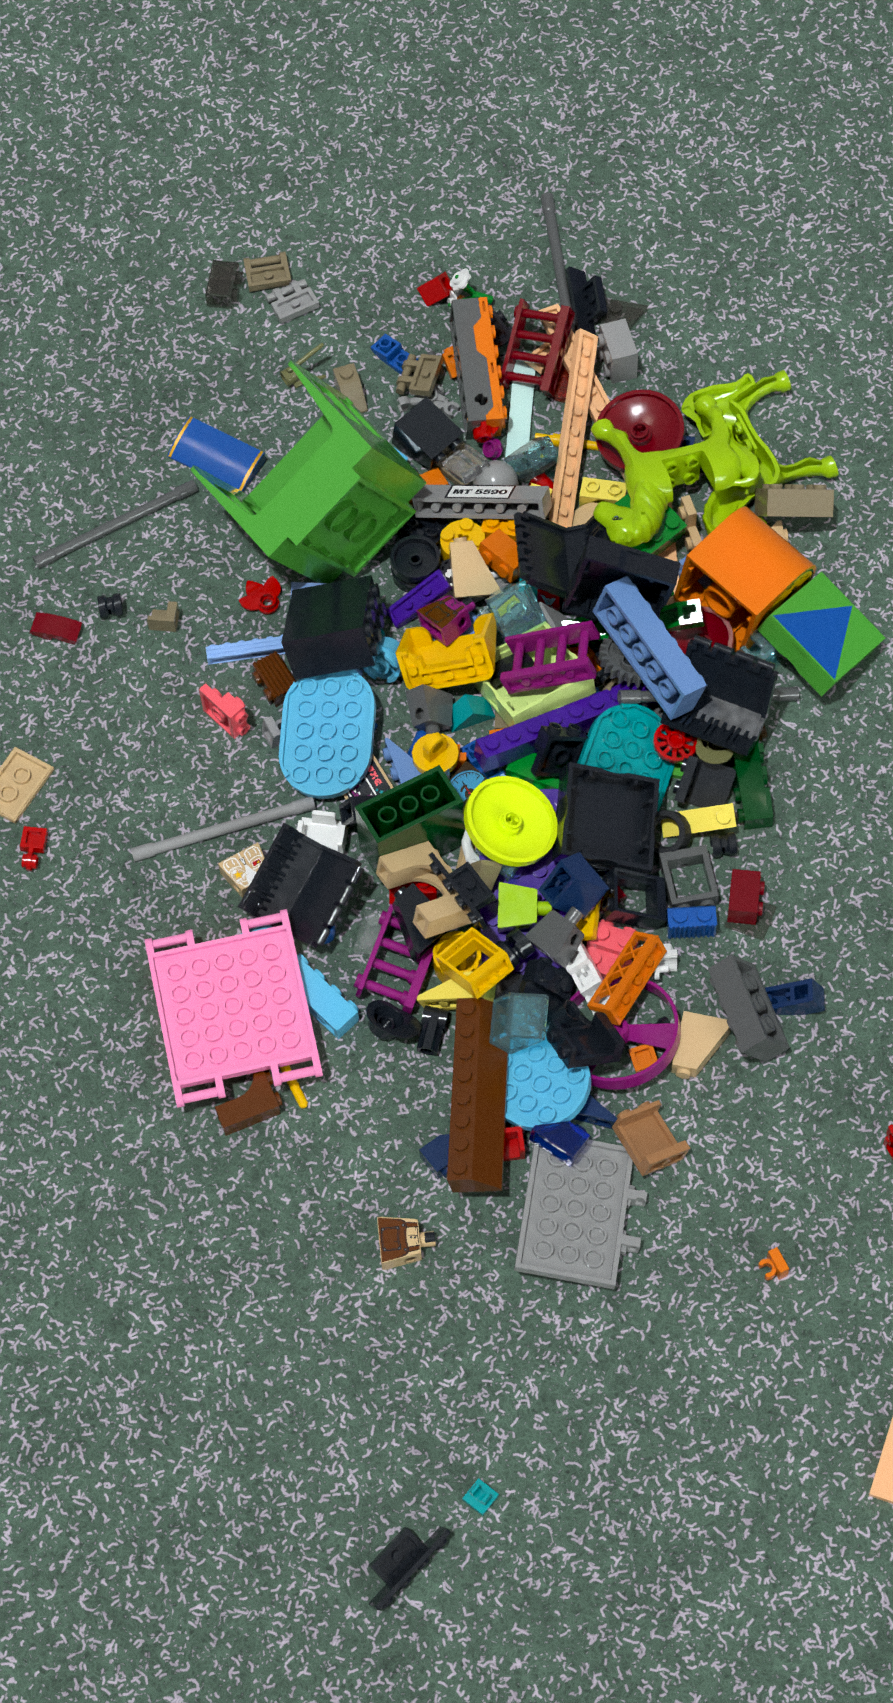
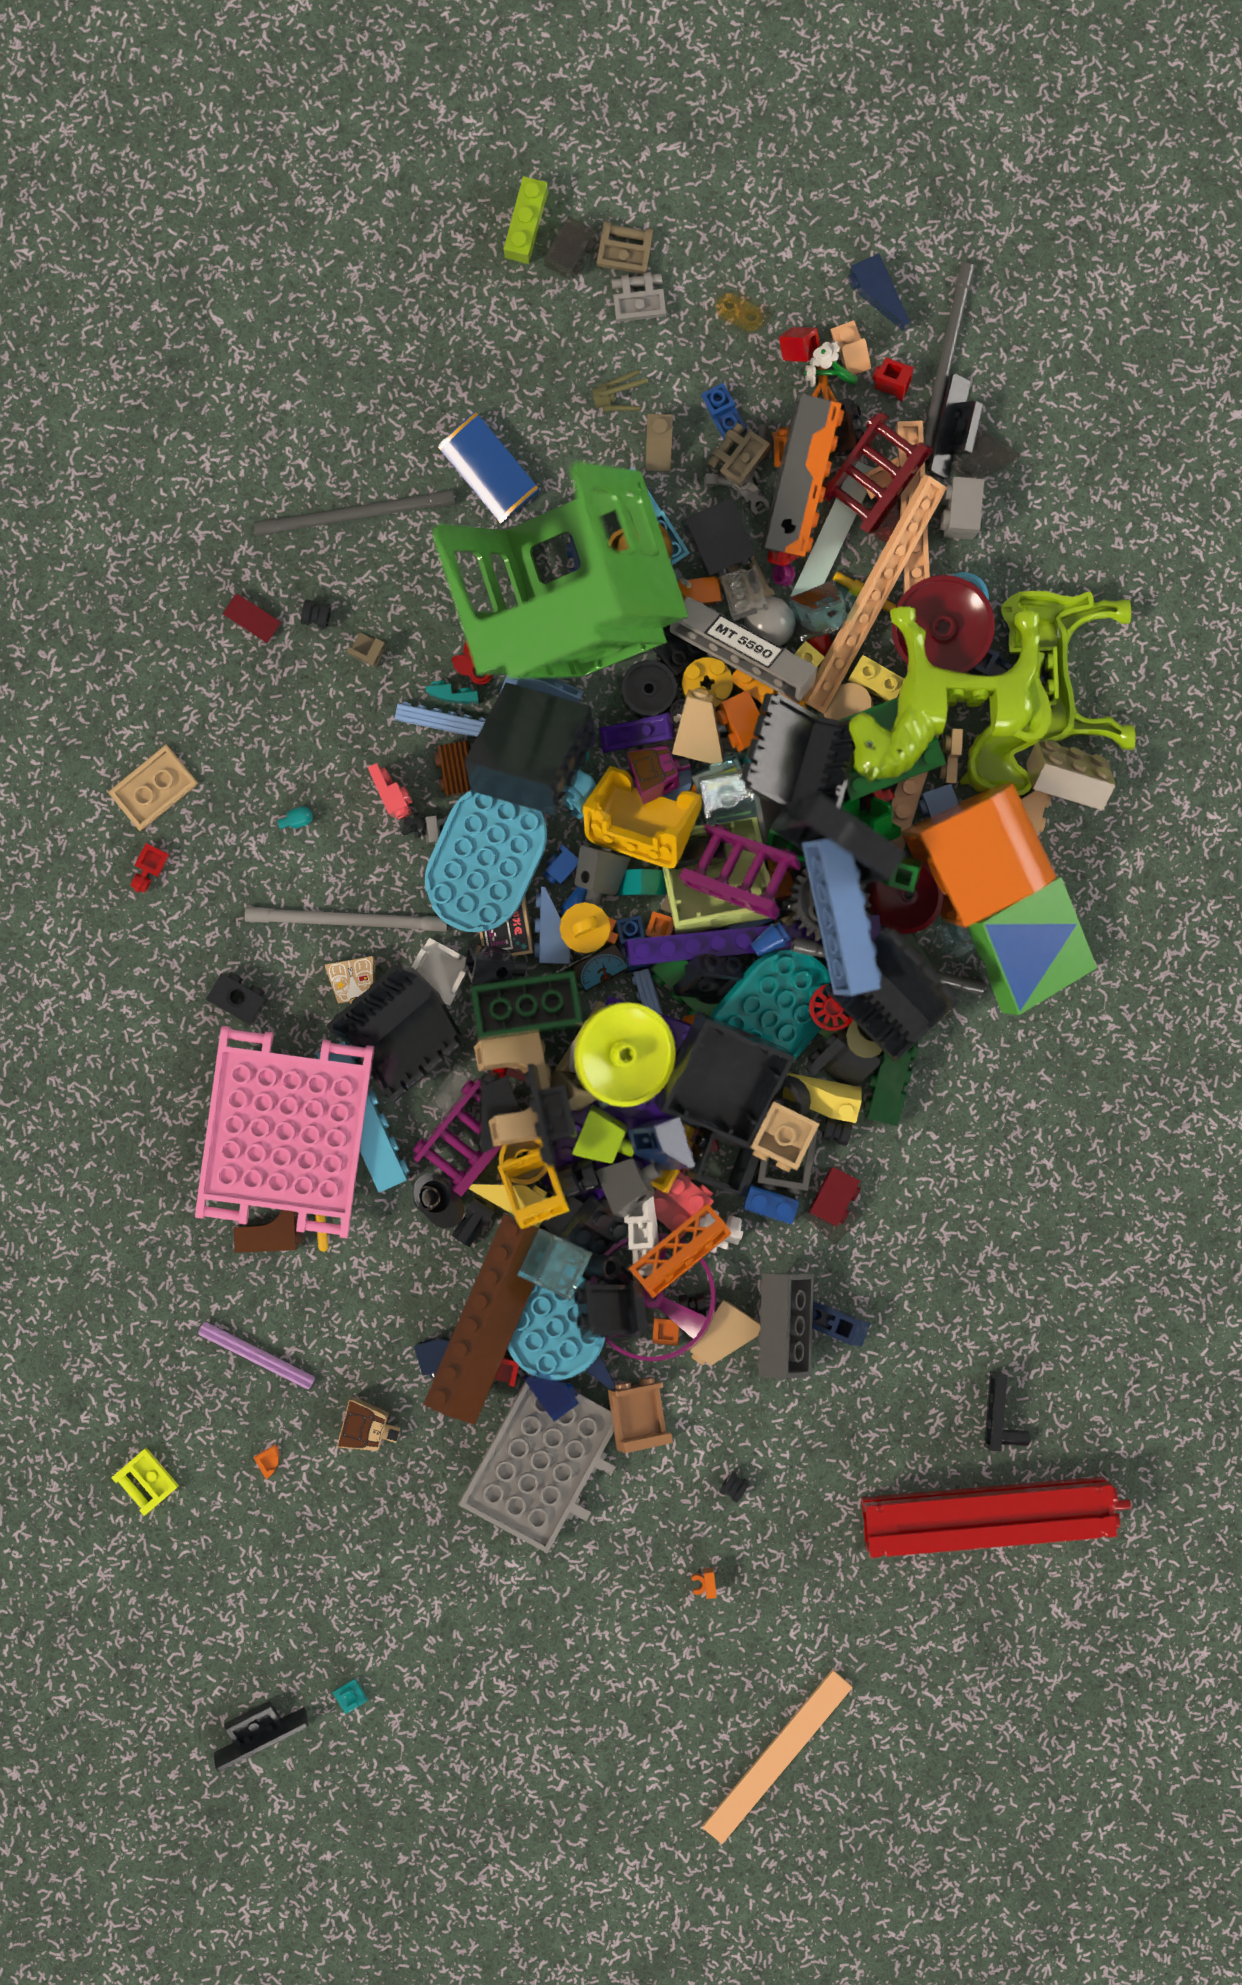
camera: 20 degrees right, 25 degrees up
(139, 912) = (223, 992): none -> black brick
(150, 764) = (296, 818): none -> teal cylinder
(179, 276) = (525, 220): none -> lime brick
(214, 1360) = (151, 1477): none -> neon yellow plate
(242, 627) = (444, 692): none -> teal slope
(254, 735) = (415, 824): none -> black plate
(276, 1218) = (256, 1355): none -> lavender axle
(320, 1308) = (268, 1460): none -> orange tile
(378, 285) = (739, 312): none -> clear yellow plate
(395, 721) = (561, 866): none -> blue brick
(482, 278) = (852, 348): none -> light nougat slope
(483, 233) = (876, 287): none -> dark blue slope
(522, 286) = (893, 378): none -> red brick
(599, 697) = (770, 939): none -> blue cone
(678, 853) = (784, 1137): none -> tan plate
(763, 1171) = (734, 1486): none -> black wheel

